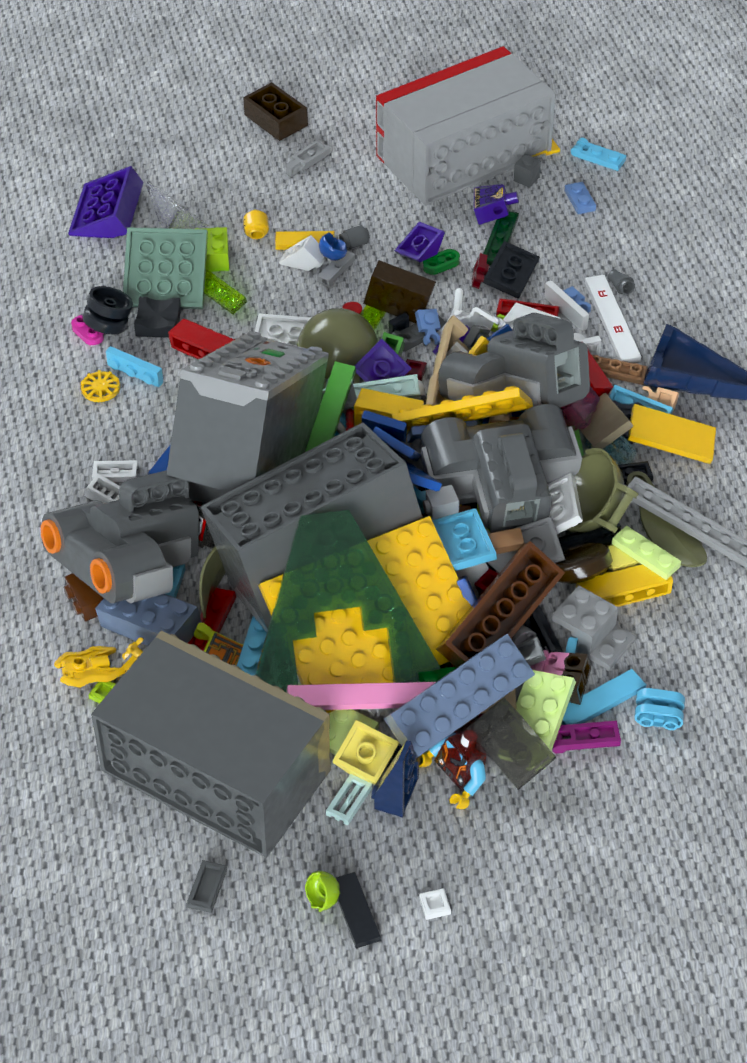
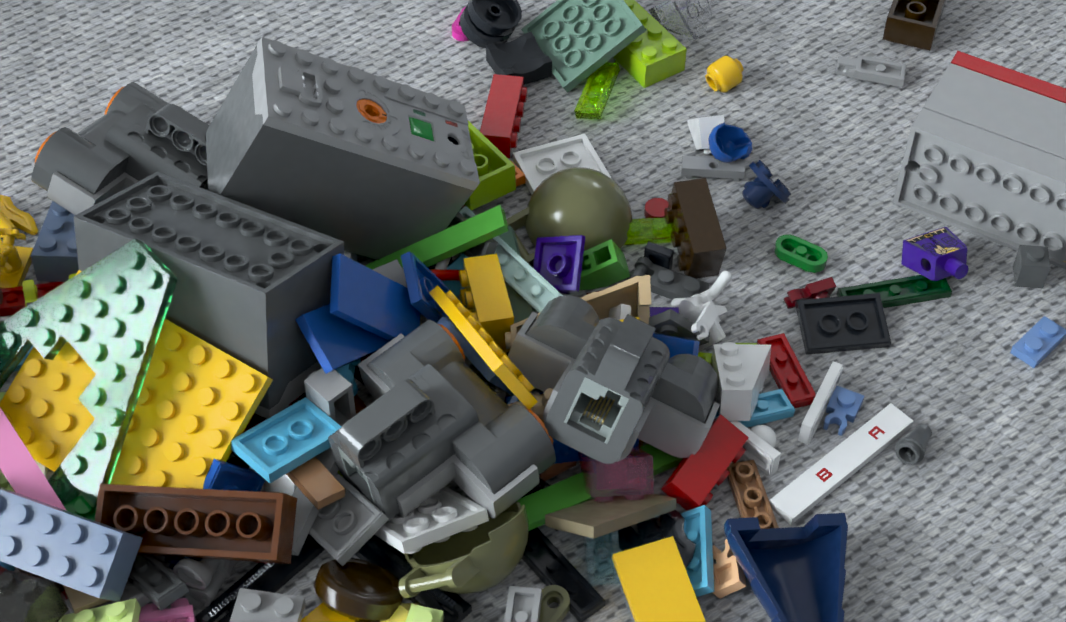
camera: 60 degrees right, 0 degrees up
(100, 386) = (394, 65): yellow wheel -> none
(134, 366) = (433, 73): medium azure plate -> none
(287, 239) = (736, 116): yellow tile -> none
(355, 236) = (776, 160): dark grey brick -> none
(377, 248) = (763, 188): none -> dark blue plate
(421, 242) = (807, 220): dark purple slope -> none
(429, 323) = (675, 279): medium blue plate -> none

